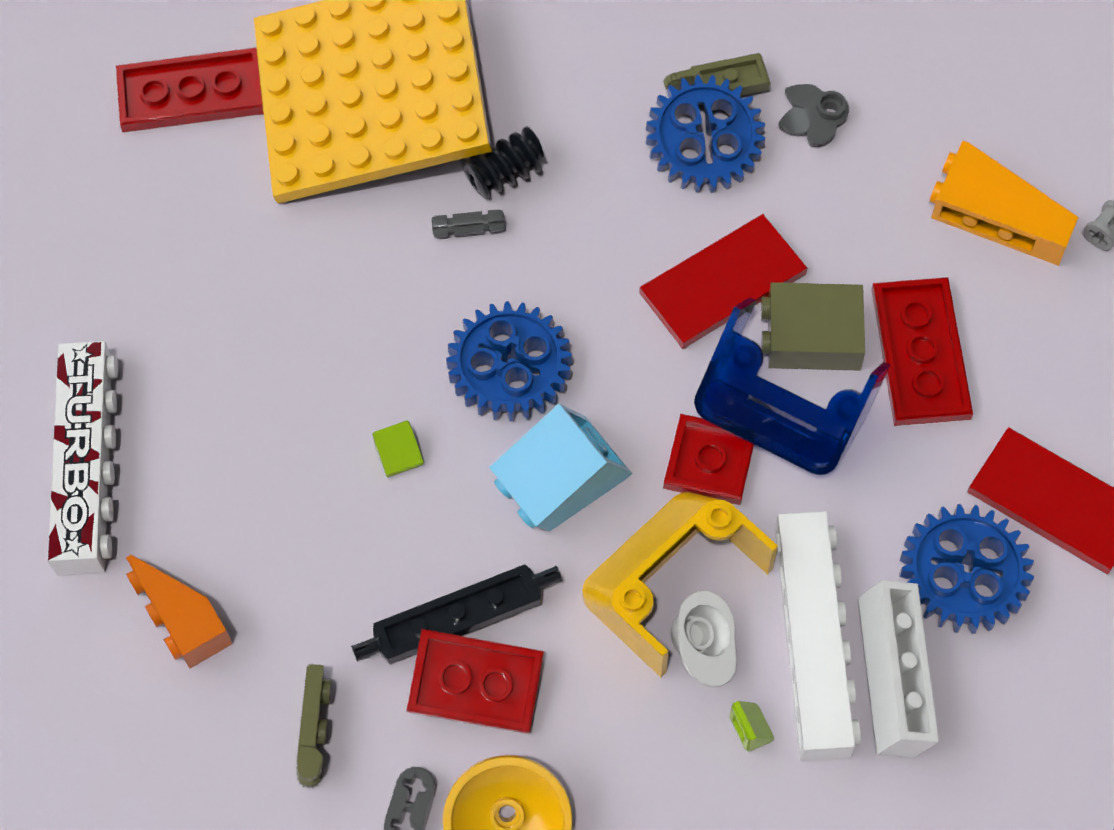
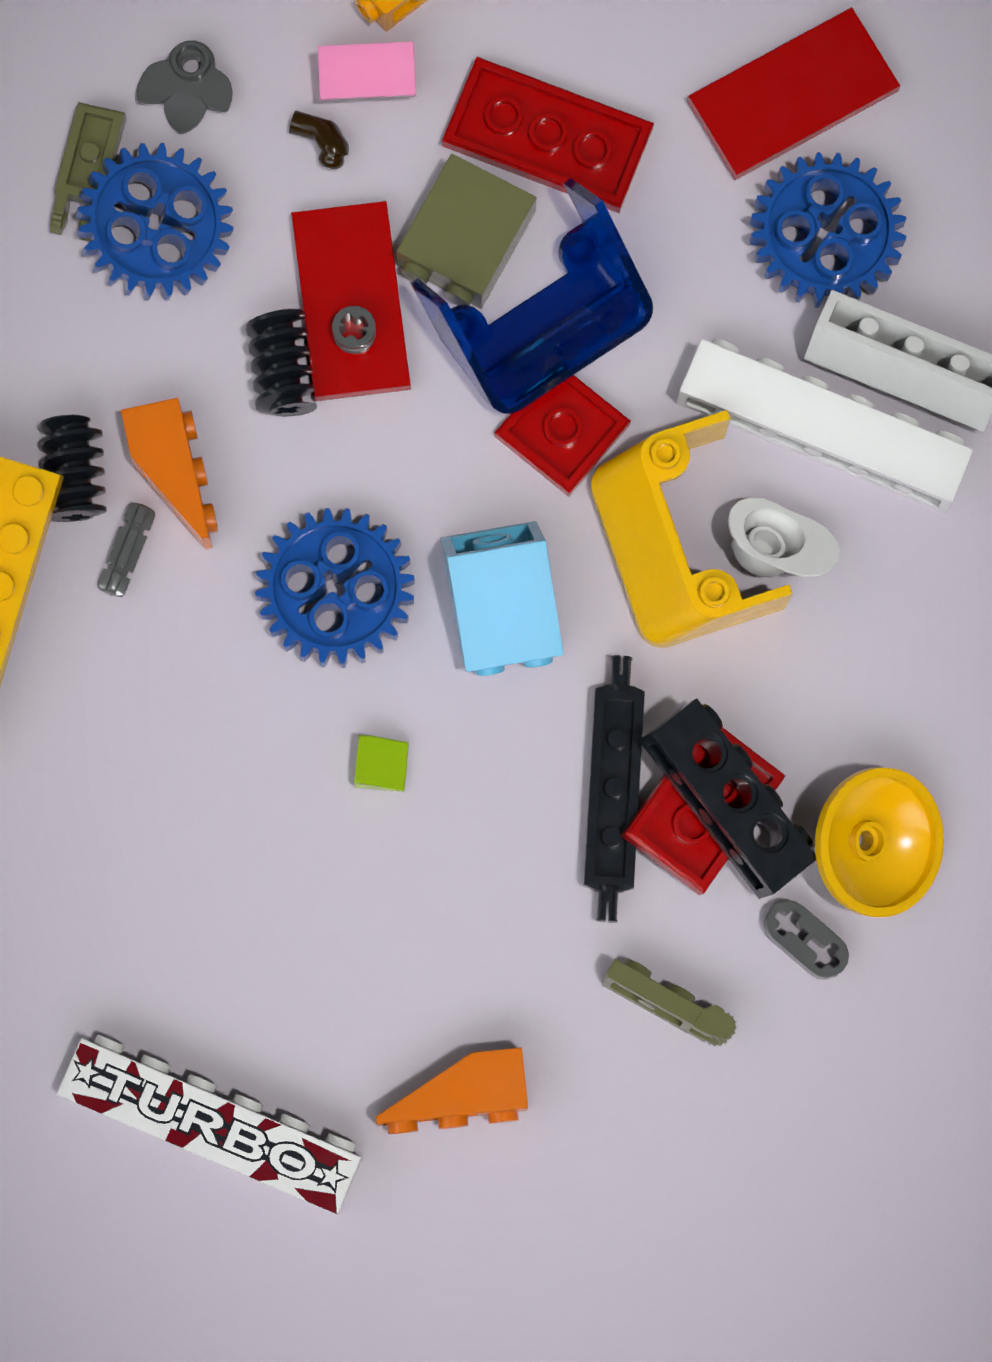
camera: 70 degrees left, 15 degrees up
(504, 625) = (702, 790): none -> black brick
(545, 214) = (162, 454): none -> orange slope
(649, 249) = (278, 363): none -> black piece
(700, 274) = (357, 316): none -> dark grey bush
(750, 725) = (887, 543): lime slope -> none
(830, 212) = (325, 133): none -> dark brown arm
(892, 212) = (366, 70): none -> bright pink hinge

